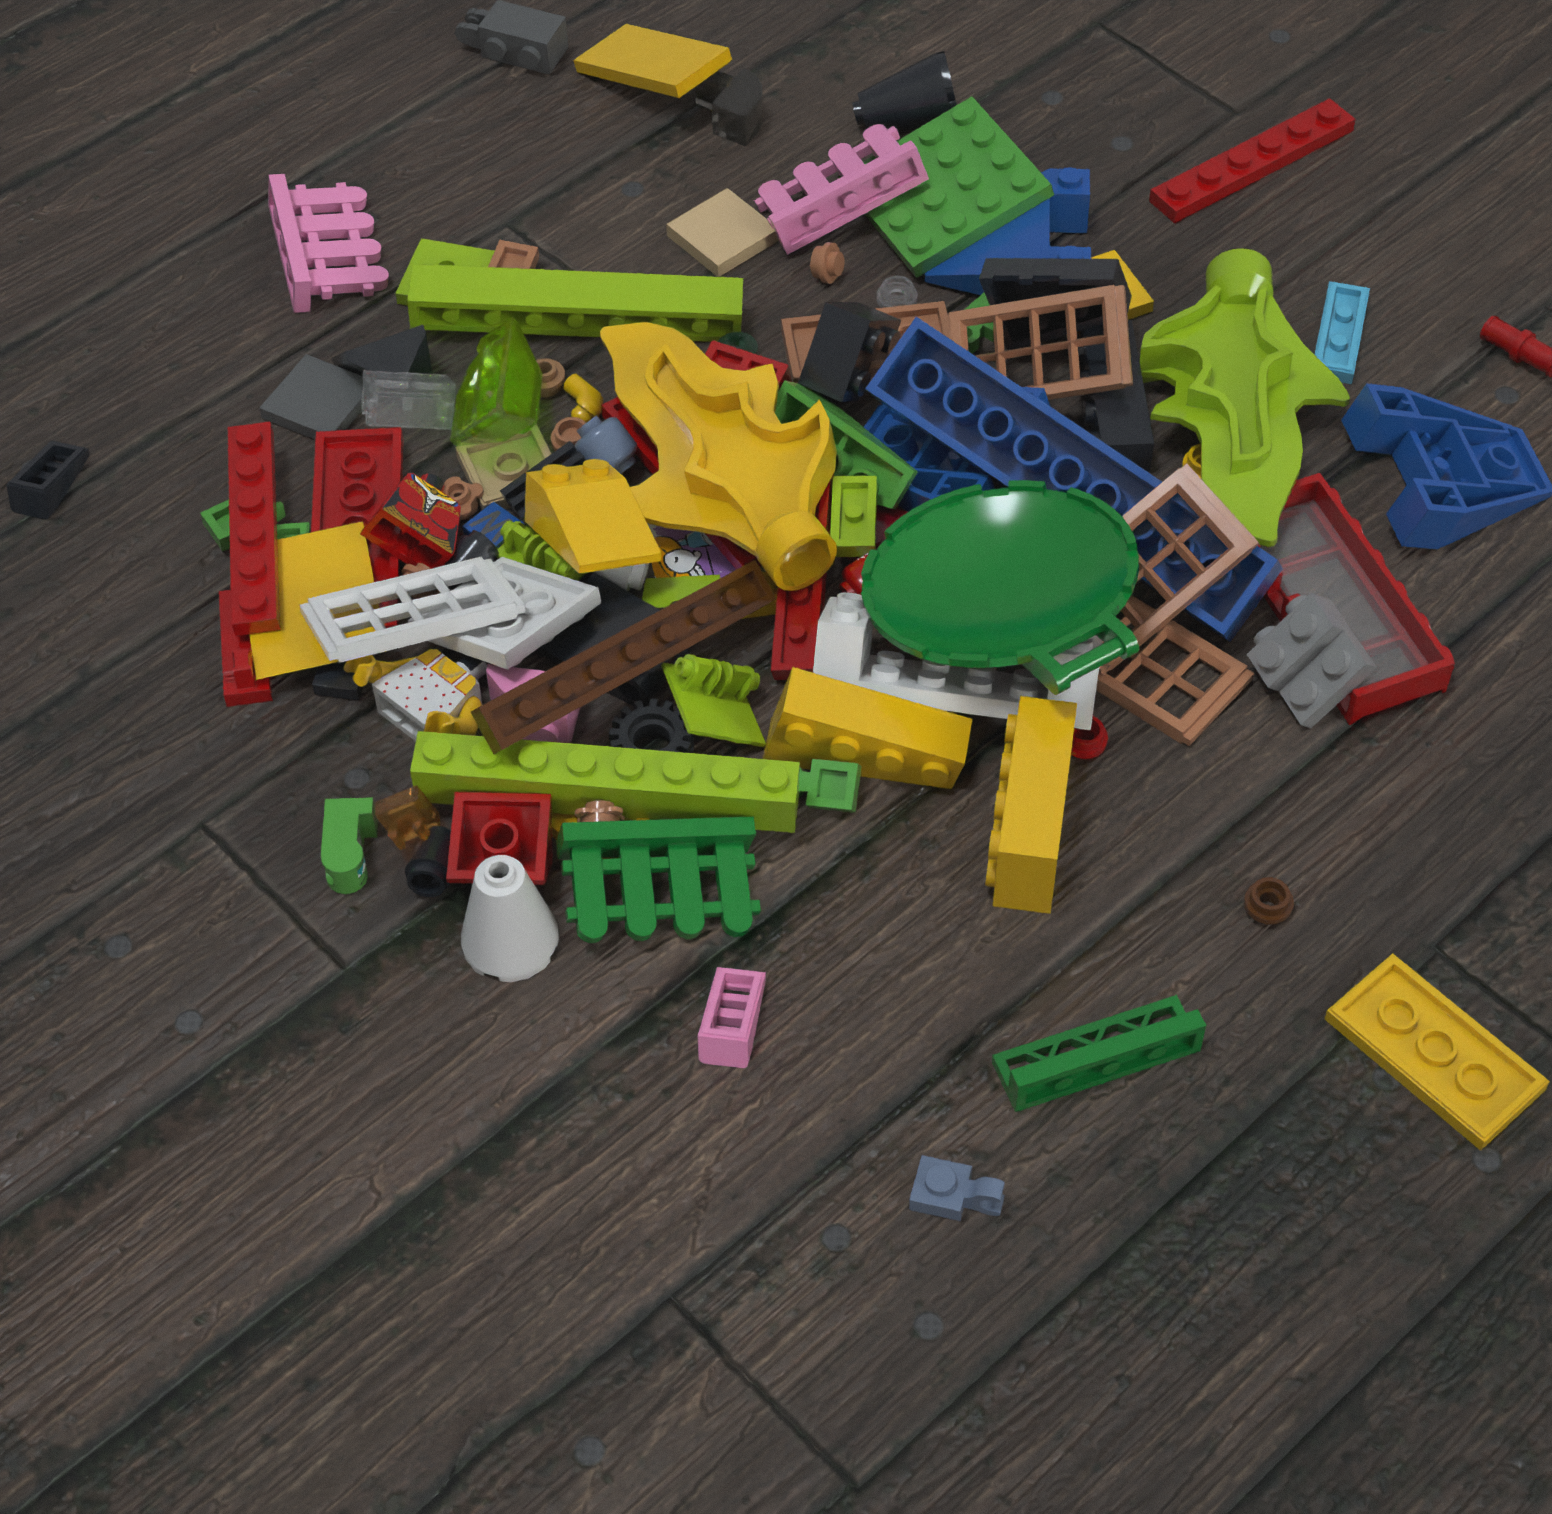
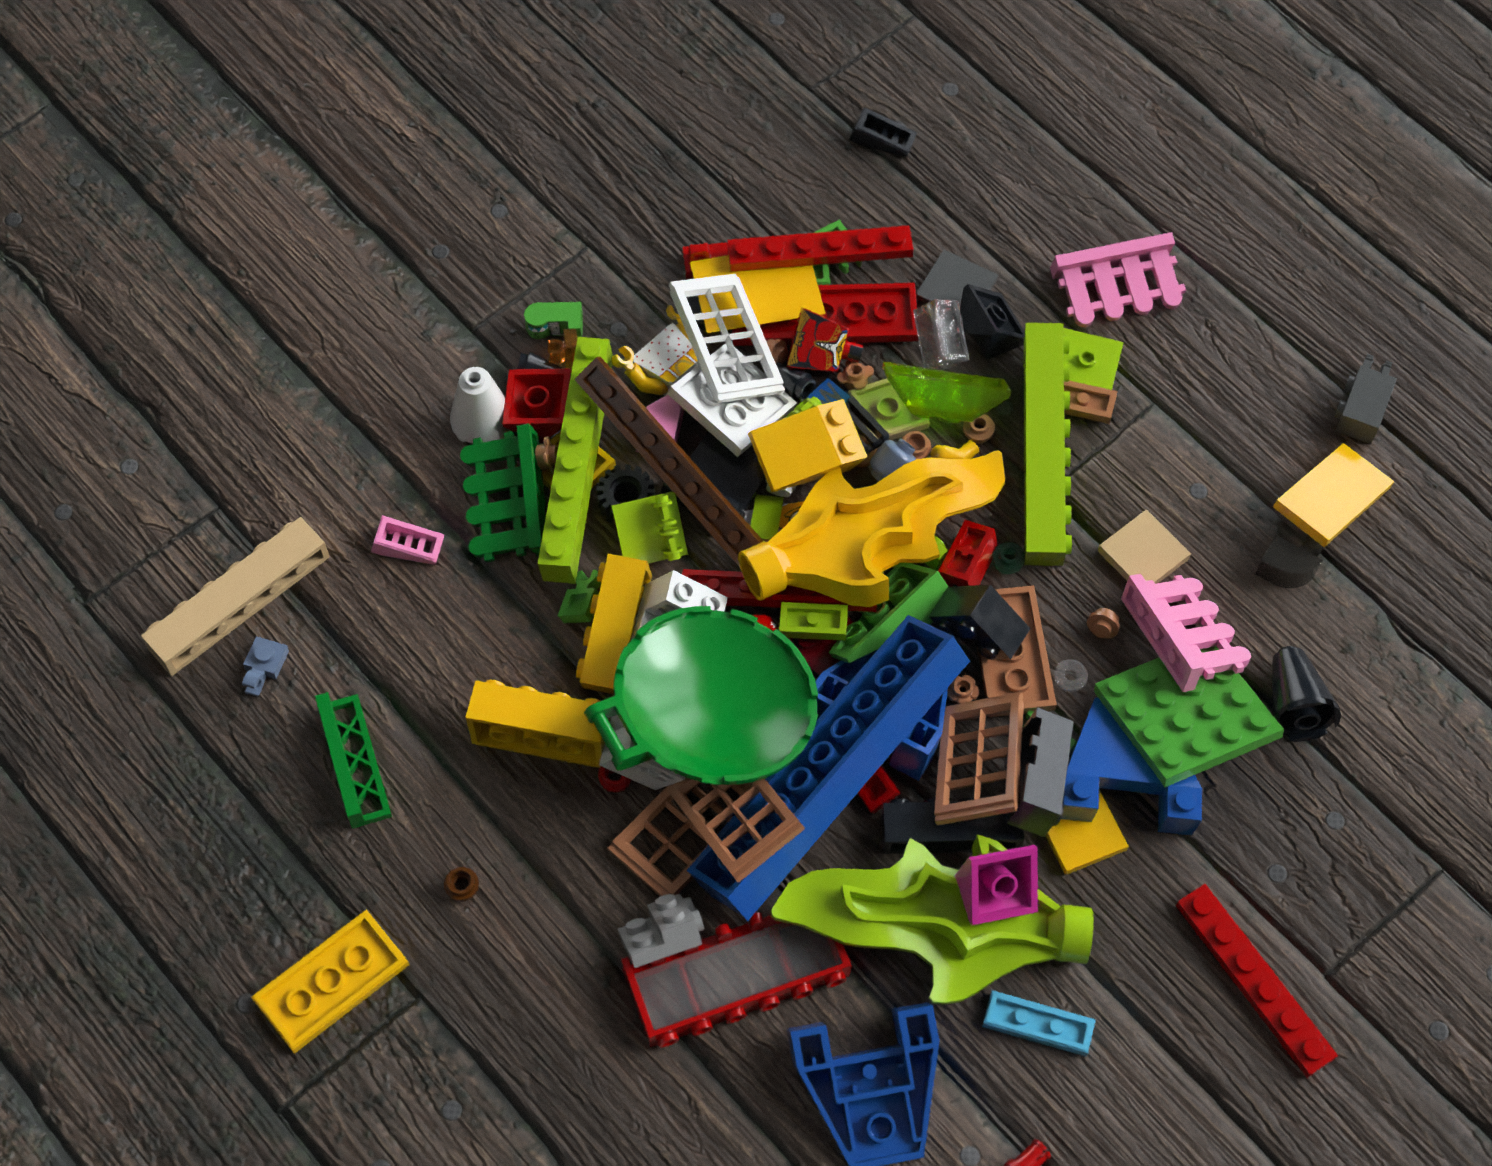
camera: 90 degrees right, 10 degrees up
(844, 1236) = (235, 595): none -> tan brick
(1207, 317) = (999, 884): none -> dark pink slope

